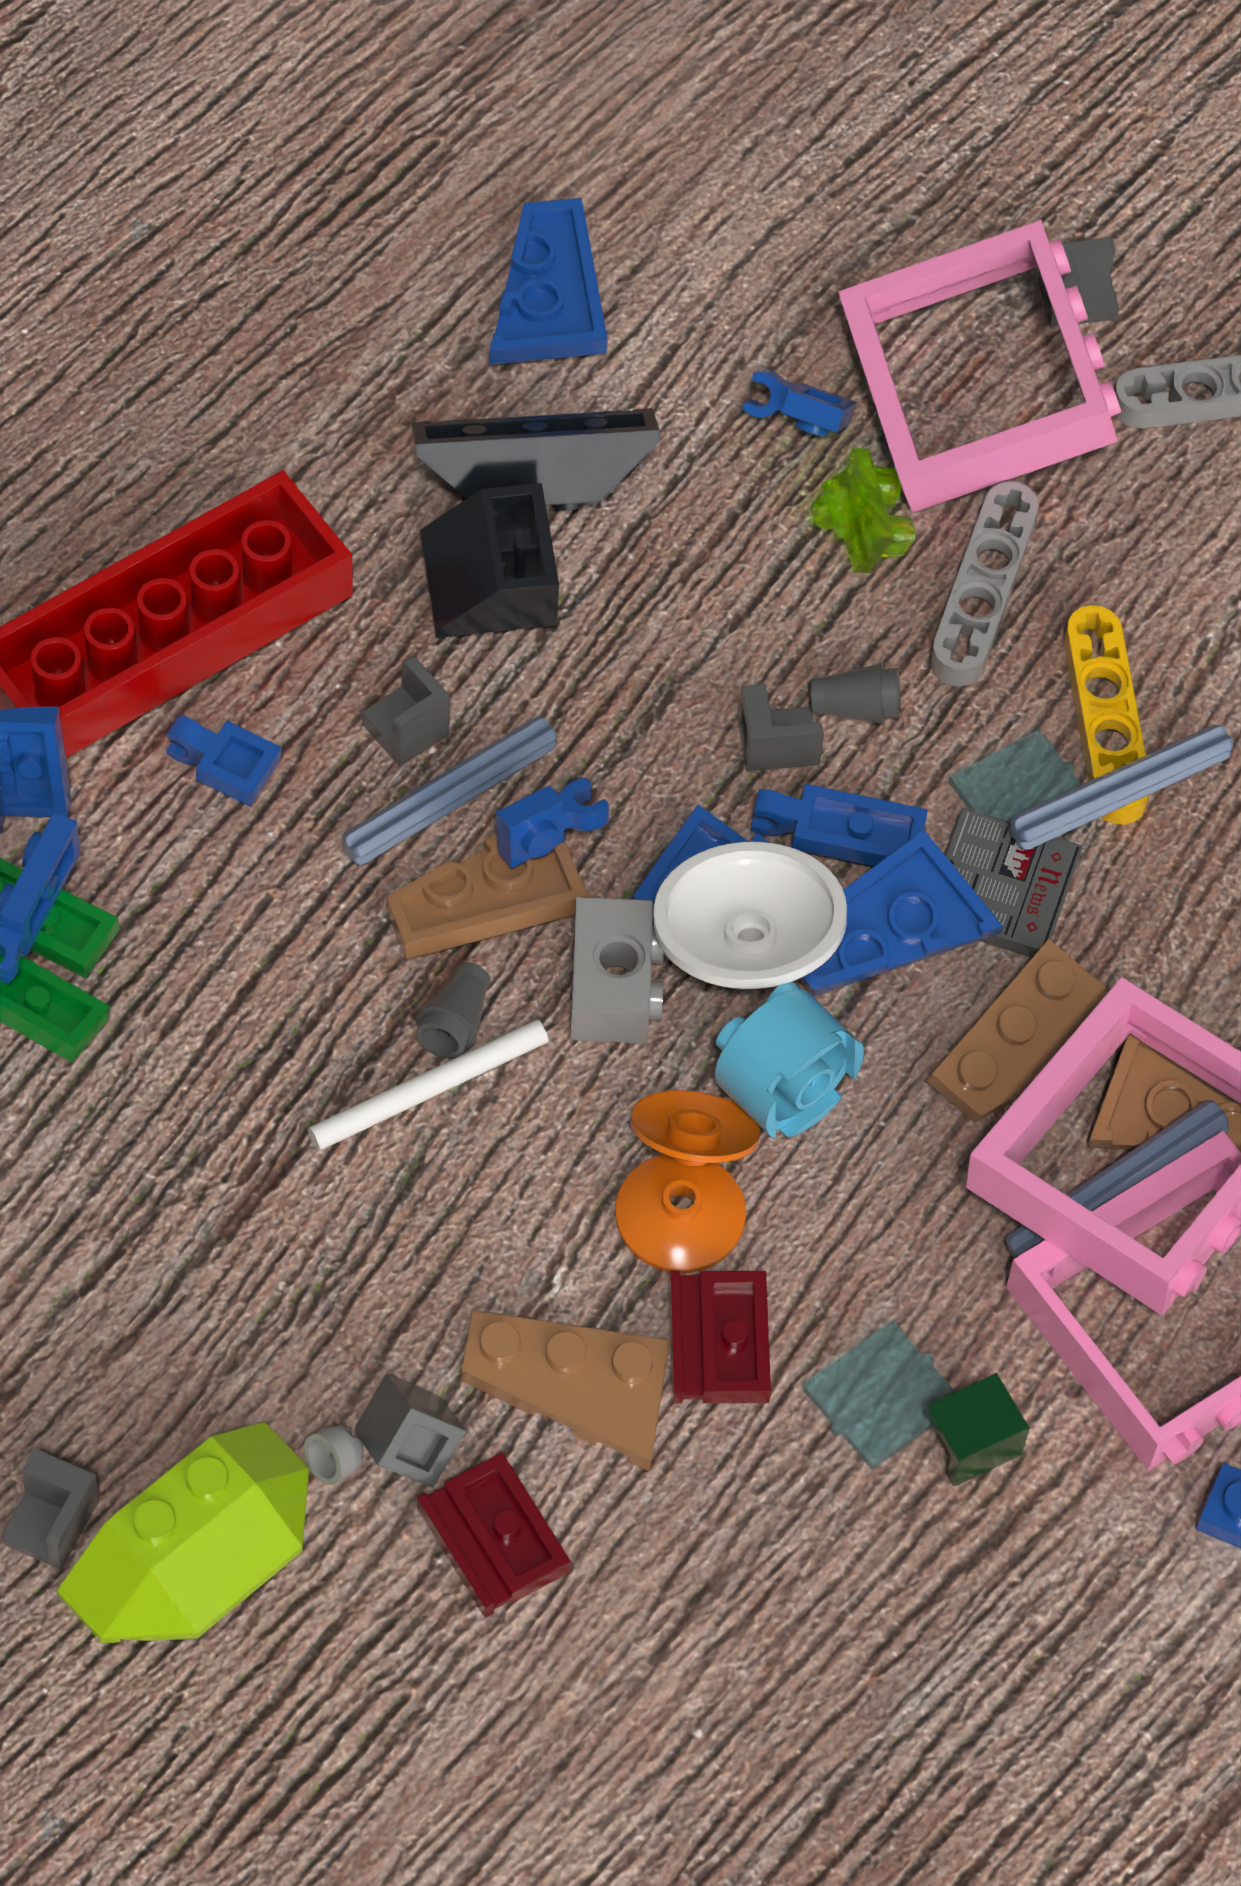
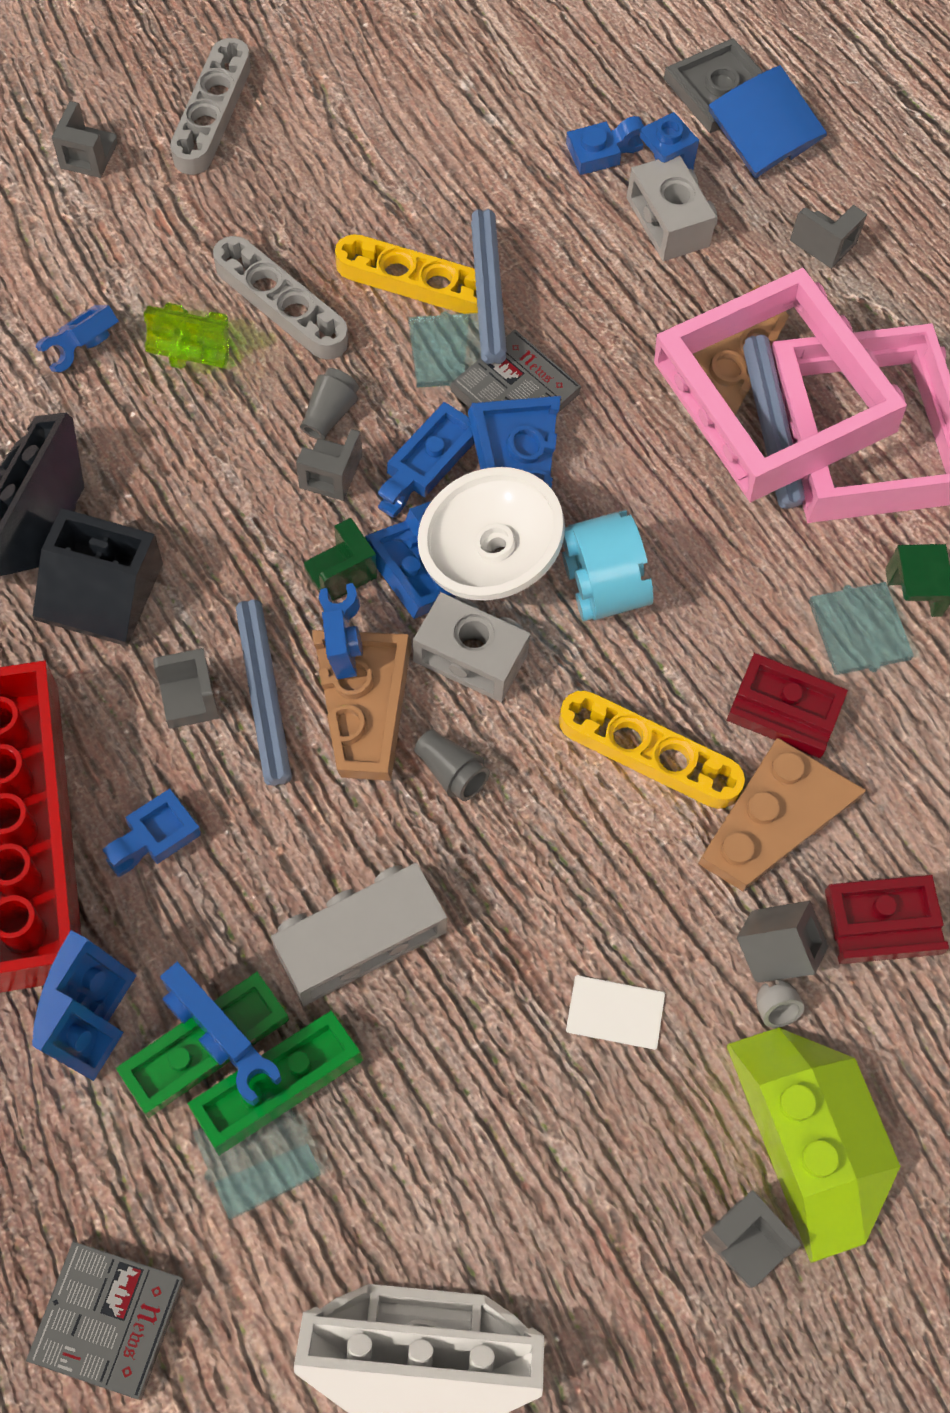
camera: 65 degrees left, 5 degrees up
(208, 997) = (359, 932): none -> light grey brick
(249, 1297) = (615, 1012): none -> white sticker
(427, 1085) = (499, 813): white bar -> none
(586, 1212) = (646, 756): none -> yellow beam
(650, 802) = (343, 564): none -> dark green panel
(673, 1236) = (679, 709): orange dish -> none
(694, 1127) = (623, 648): orange dish -> none
(1010, 451) = (109, 282): bright pink window -> none
(1018, 1034) = (638, 423): medium nougat wing -> none

